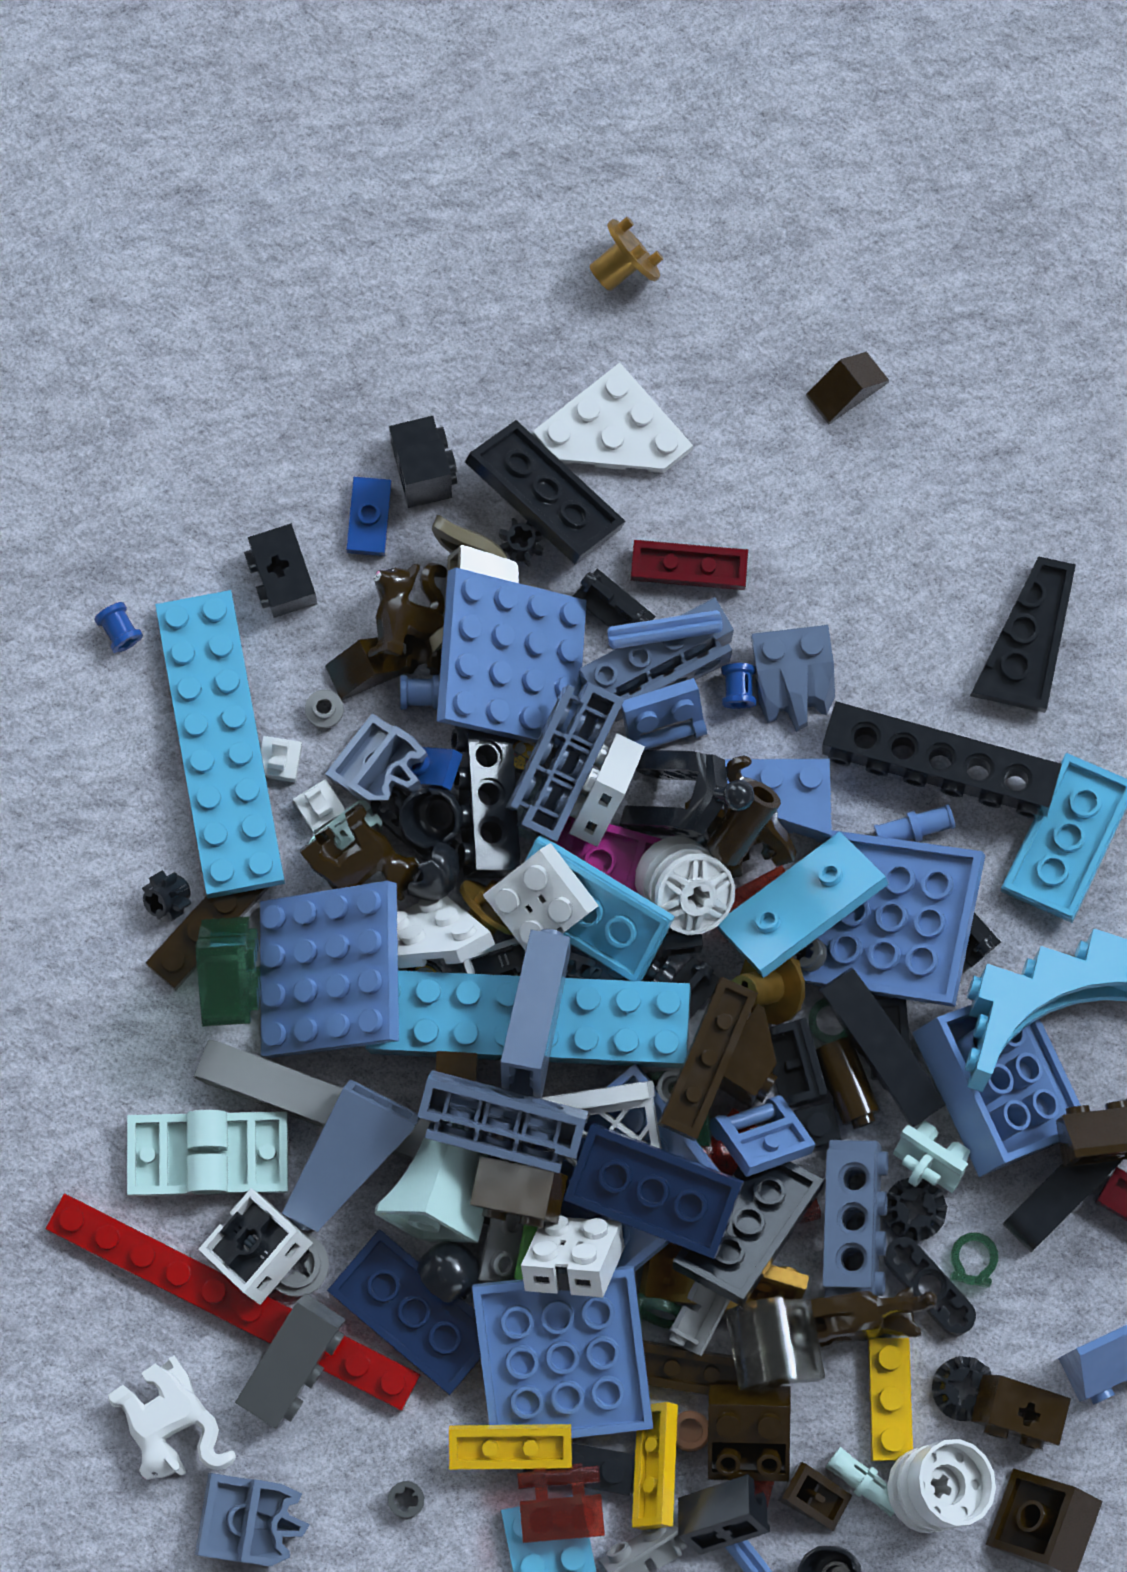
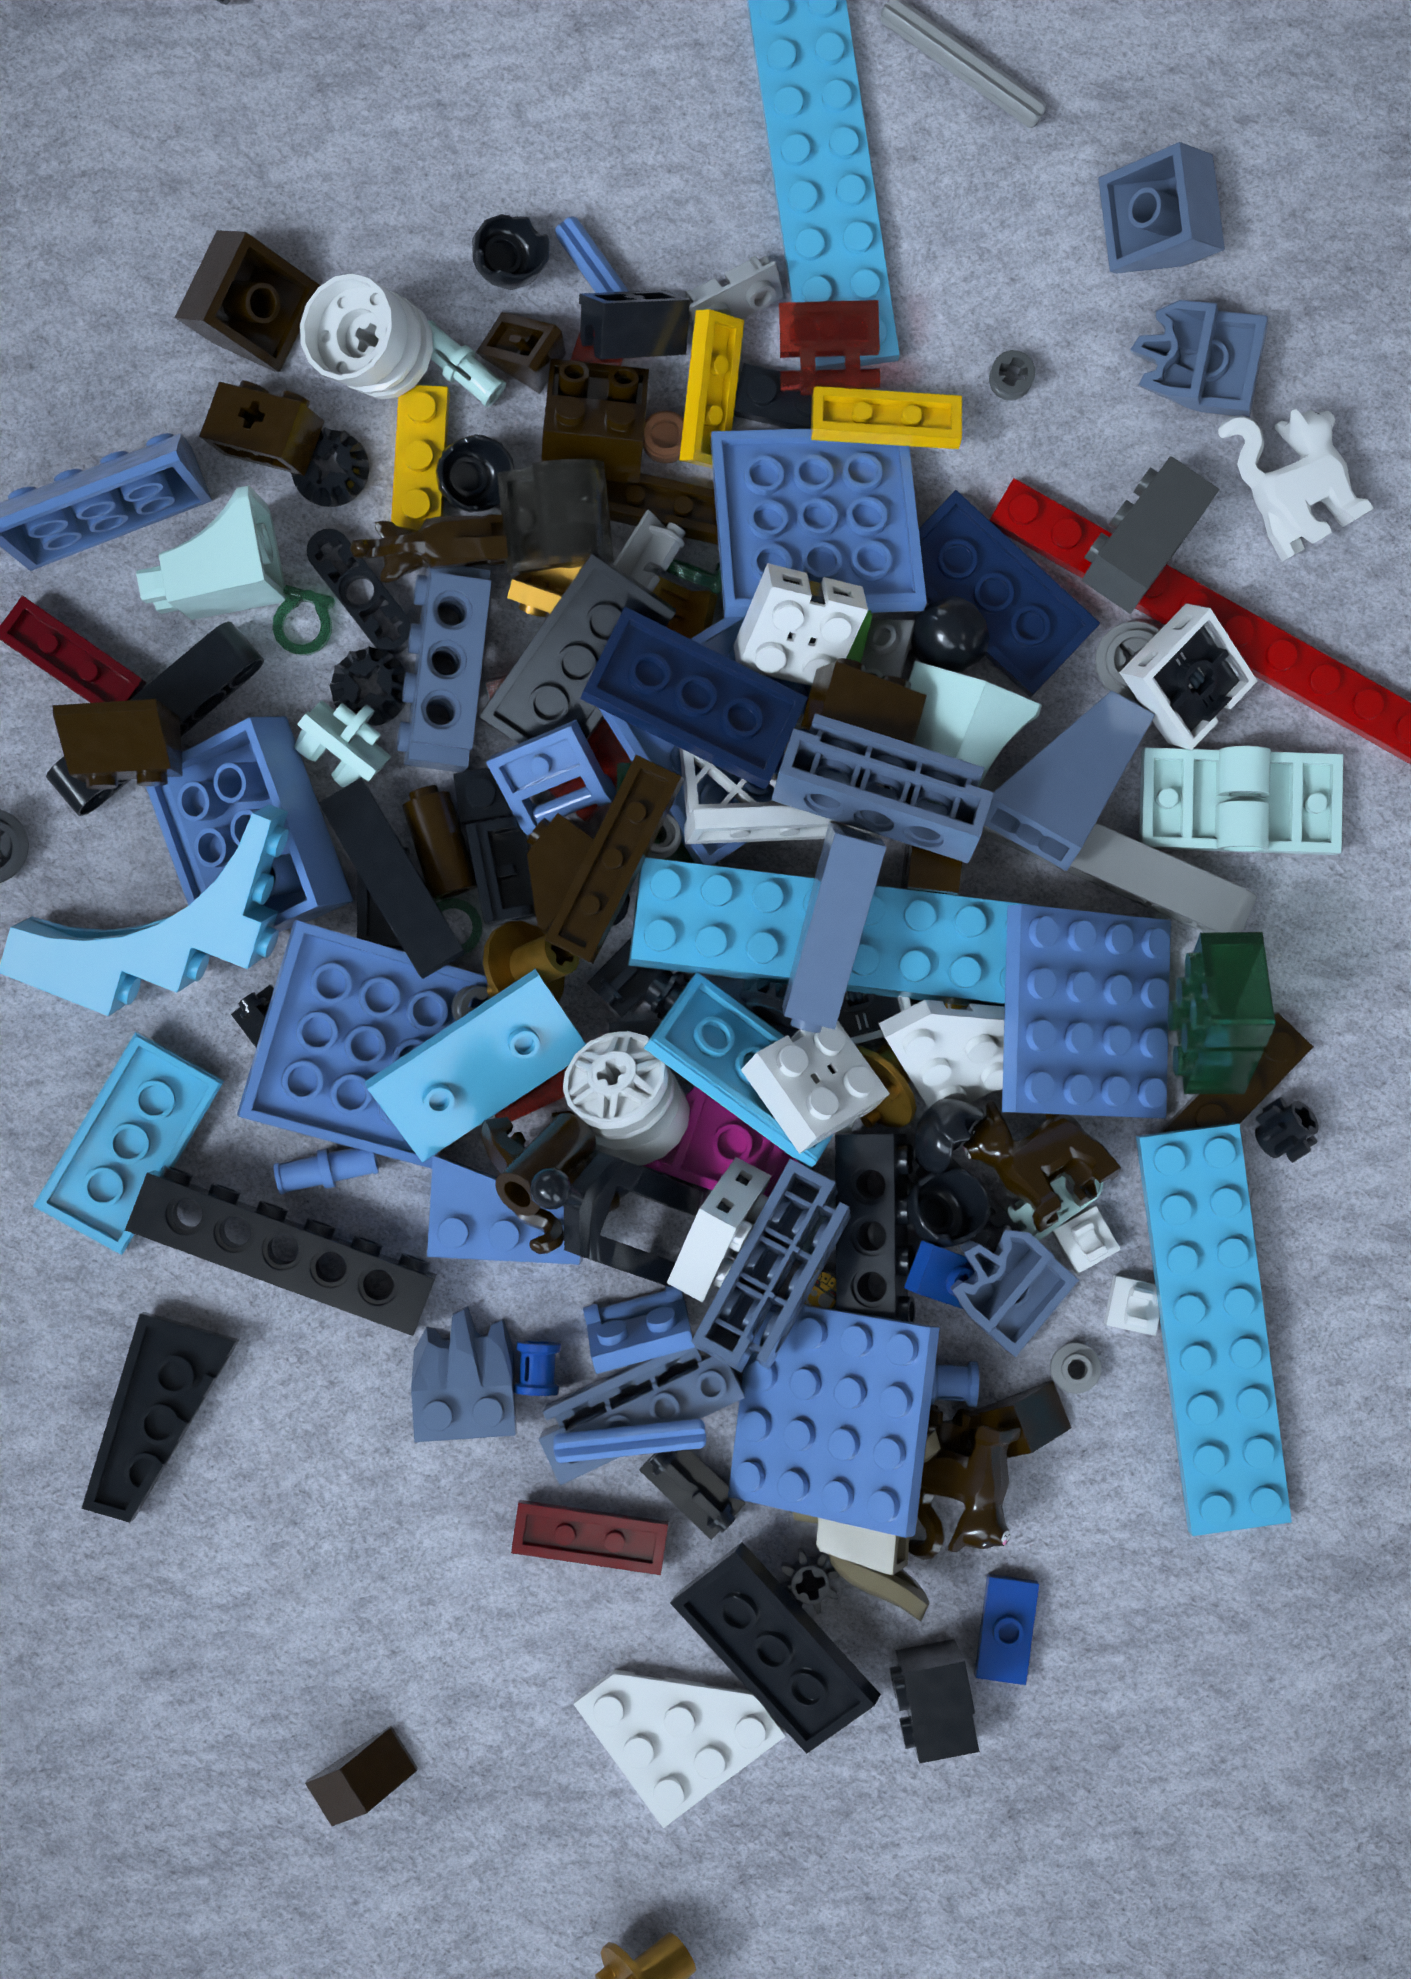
camera: 170 degrees left, 10 degrees up
(118, 627) = (1340, 1493): blue bush -> none
(281, 549) = (1126, 1589): black brick -> none
(846, 1385) = (469, 472): none -> black hair
(1035, 1290) = (222, 567): none -> light aqua hips

